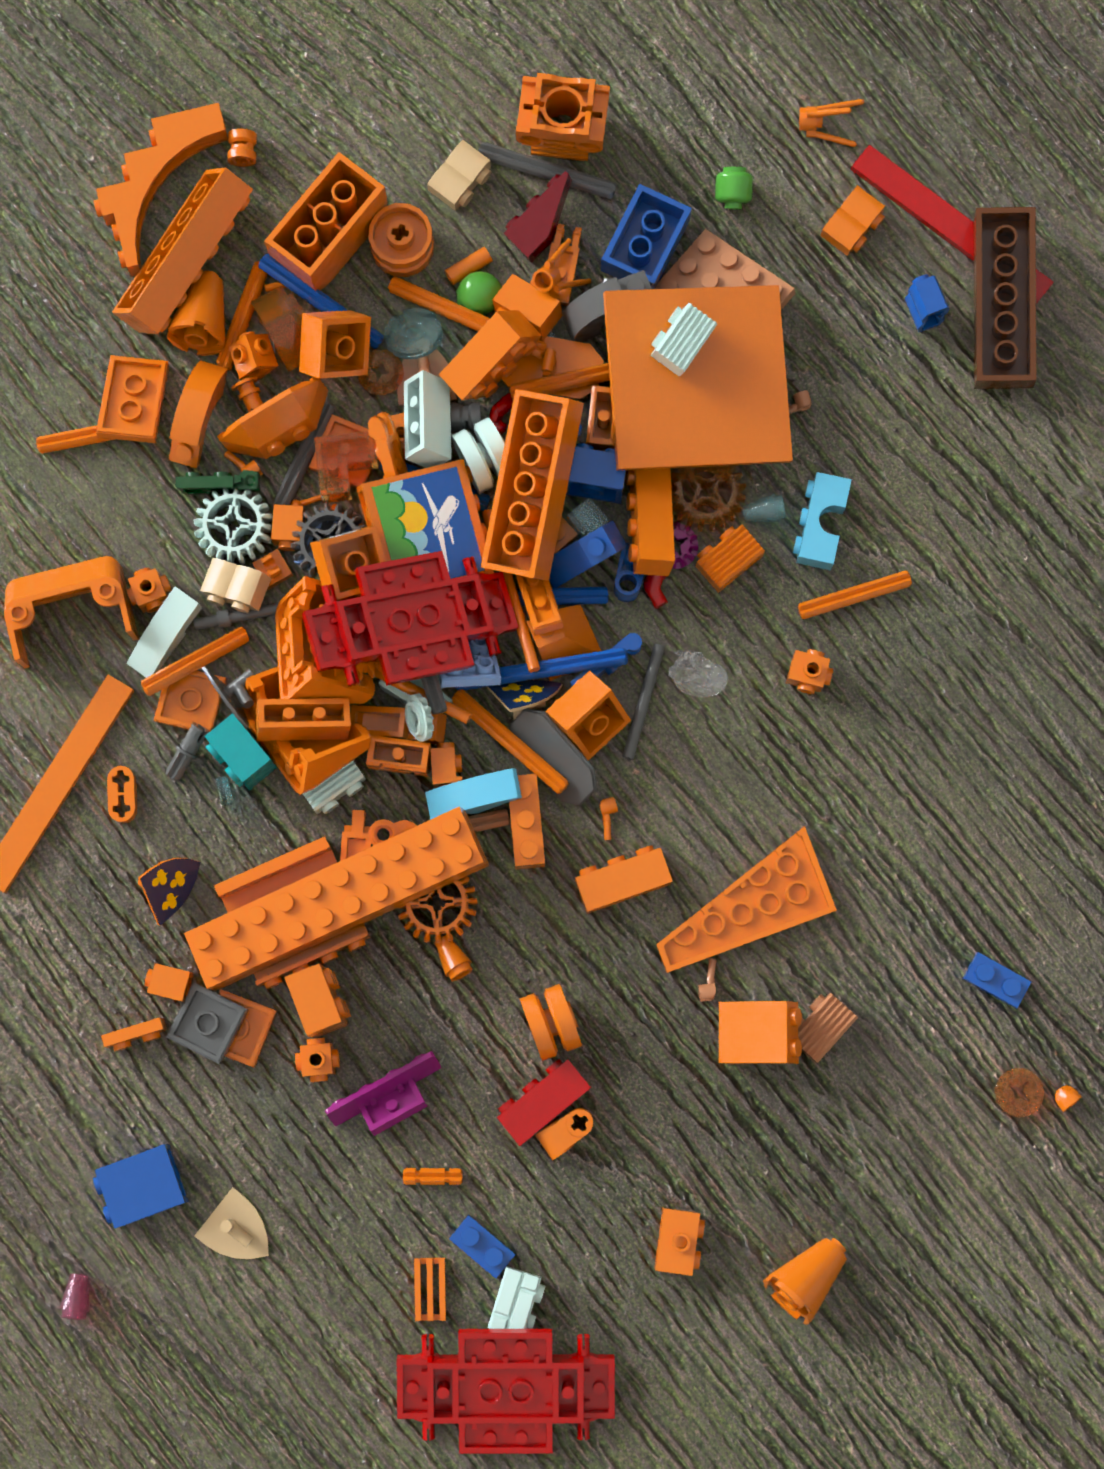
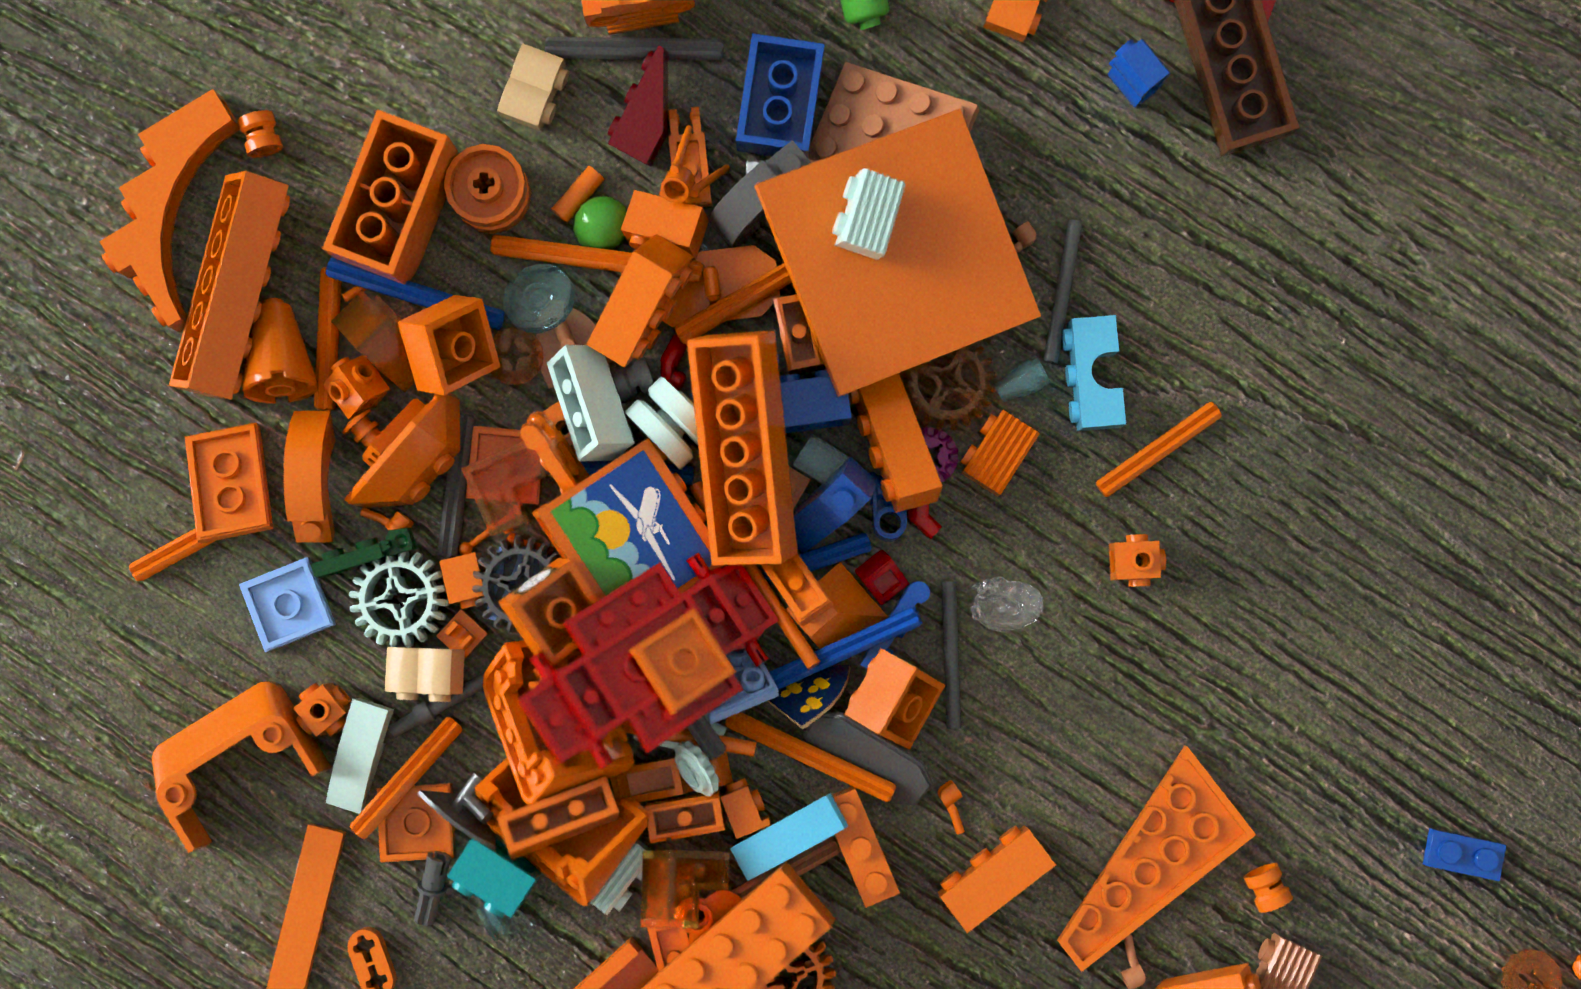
camera: 20 degrees left, 5 degrees up
(146, 505) = (287, 604): none -> light blue tile
(263, 397) = (392, 430): none -> orange tile
(375, 799) = (673, 884): none -> clear orange brick
(435, 626) = (682, 661): none -> orange tile
(608, 626) = (881, 577): none -> red slope
(818, 452) = (1063, 291): none -> dark grey bar
(833, 954) = (1268, 887): none -> orange wheel

